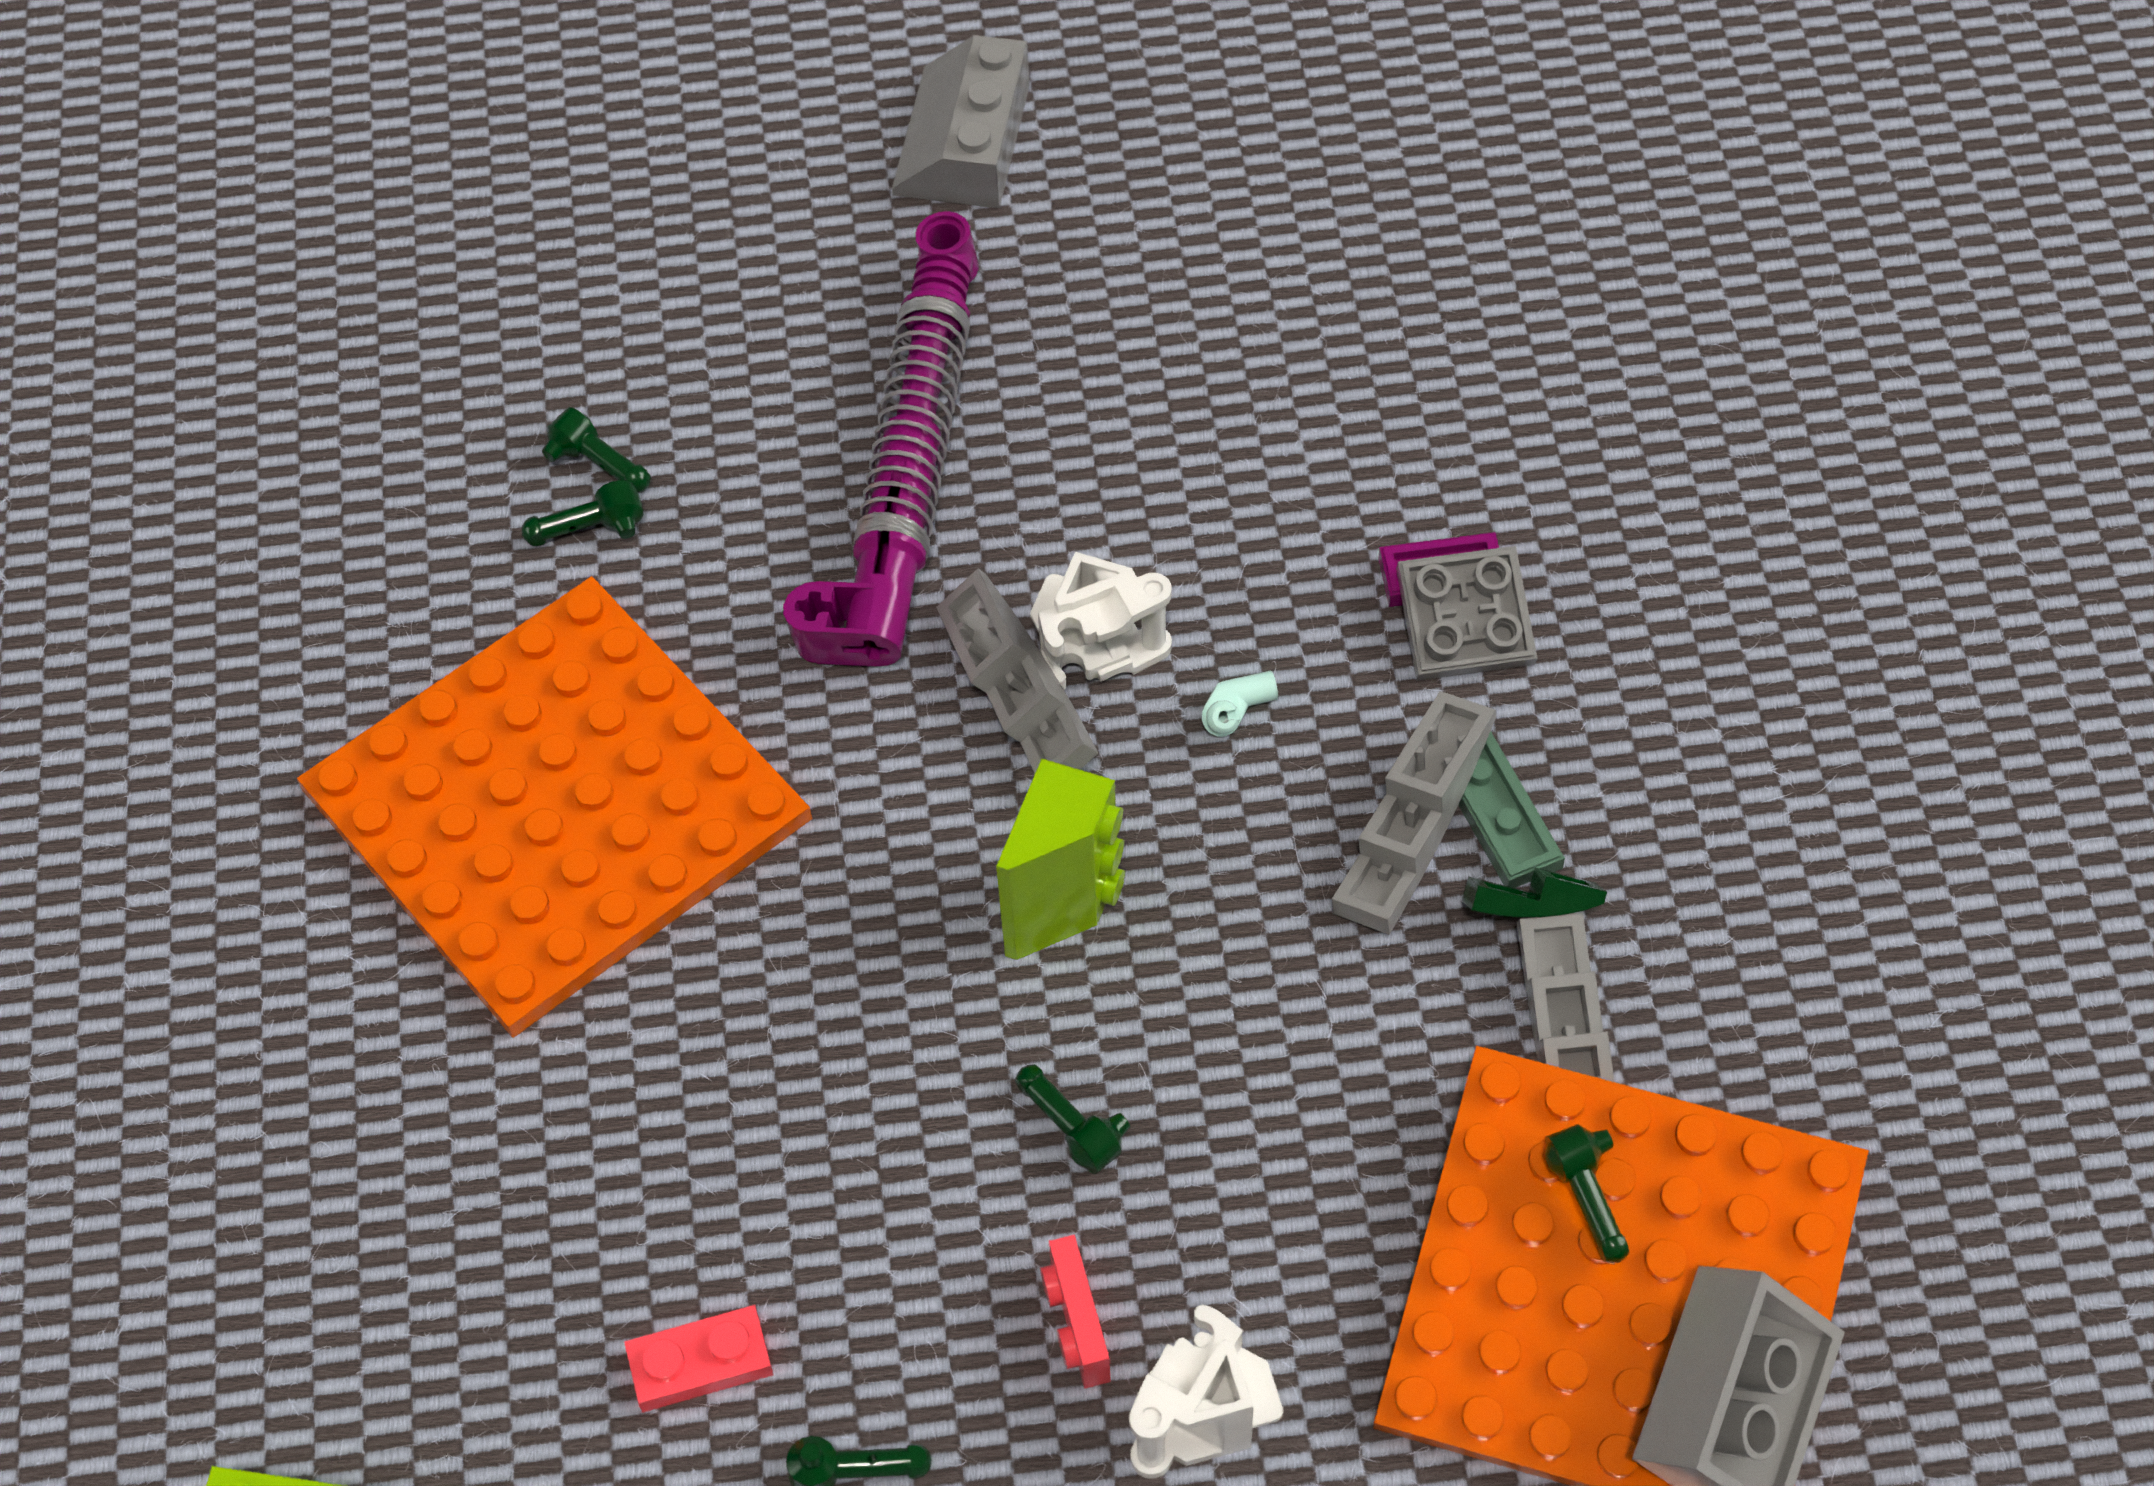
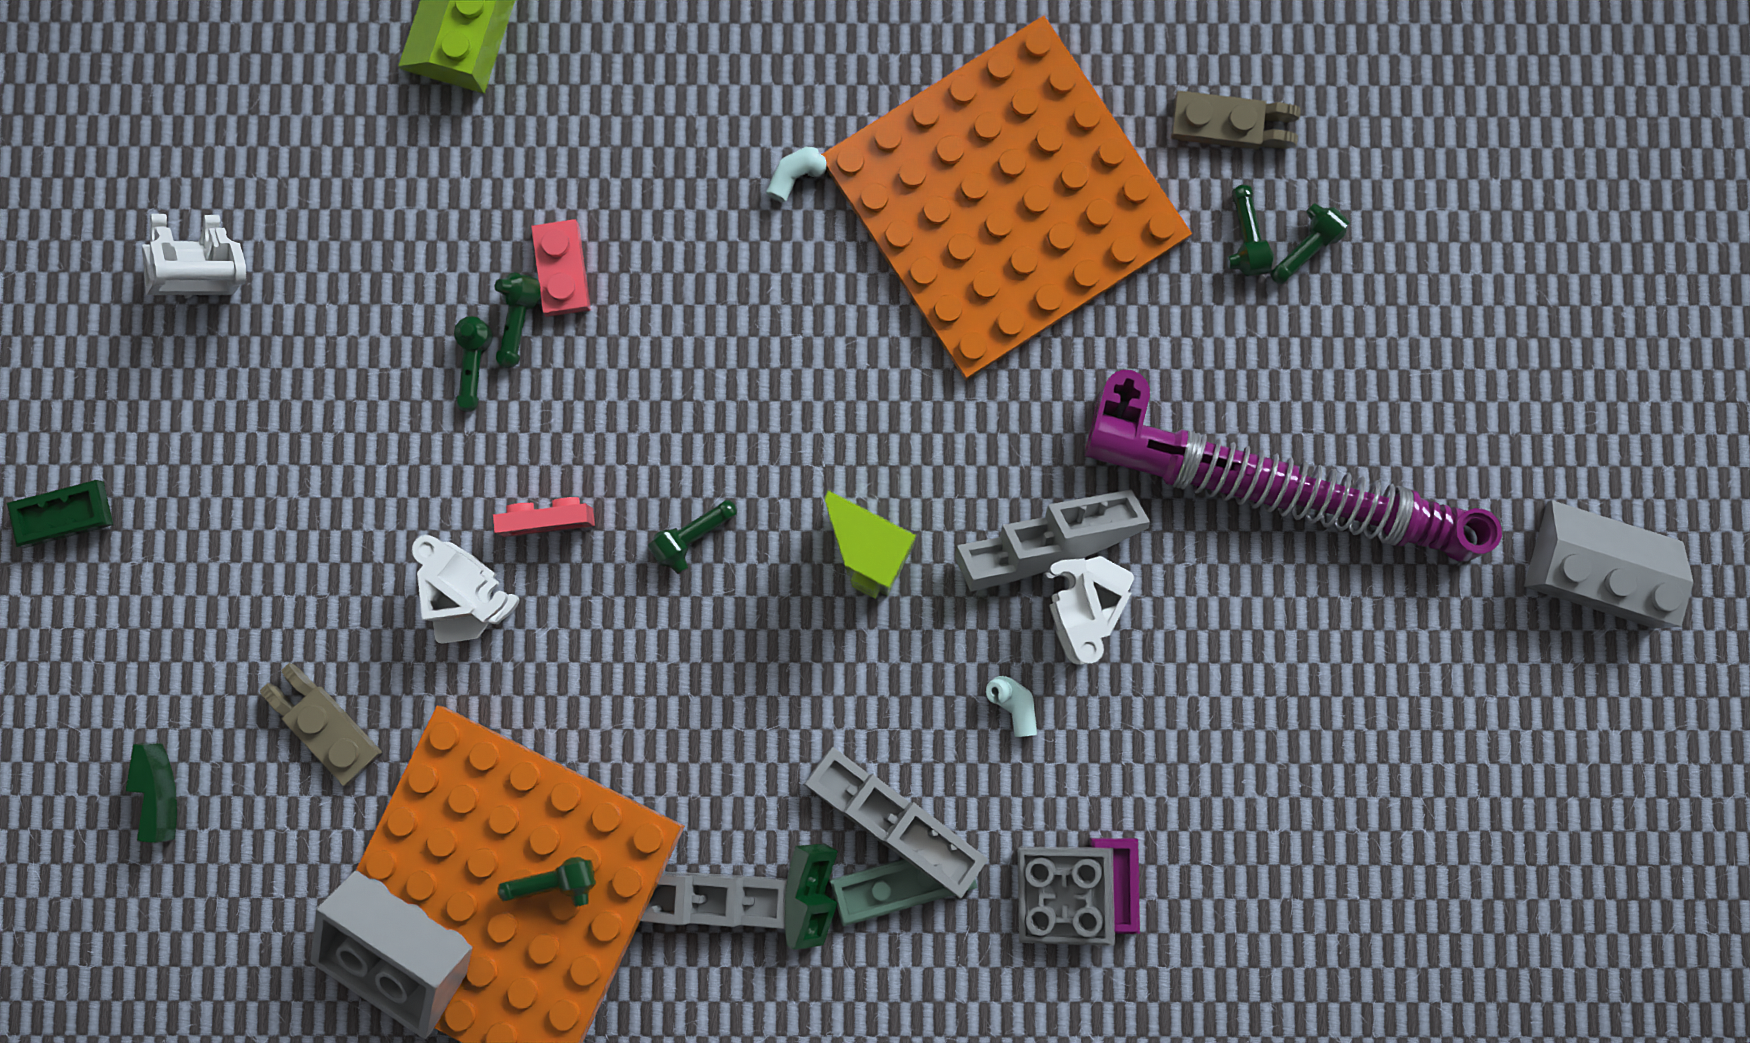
camera: 95 degrees right, 25 degrees up
(436, 556) = (1231, 121): none -> dark tan hinge
(526, 1060) = (793, 166): none -> light aqua arm
(745, 1401) = (521, 294): none -> dark green piece

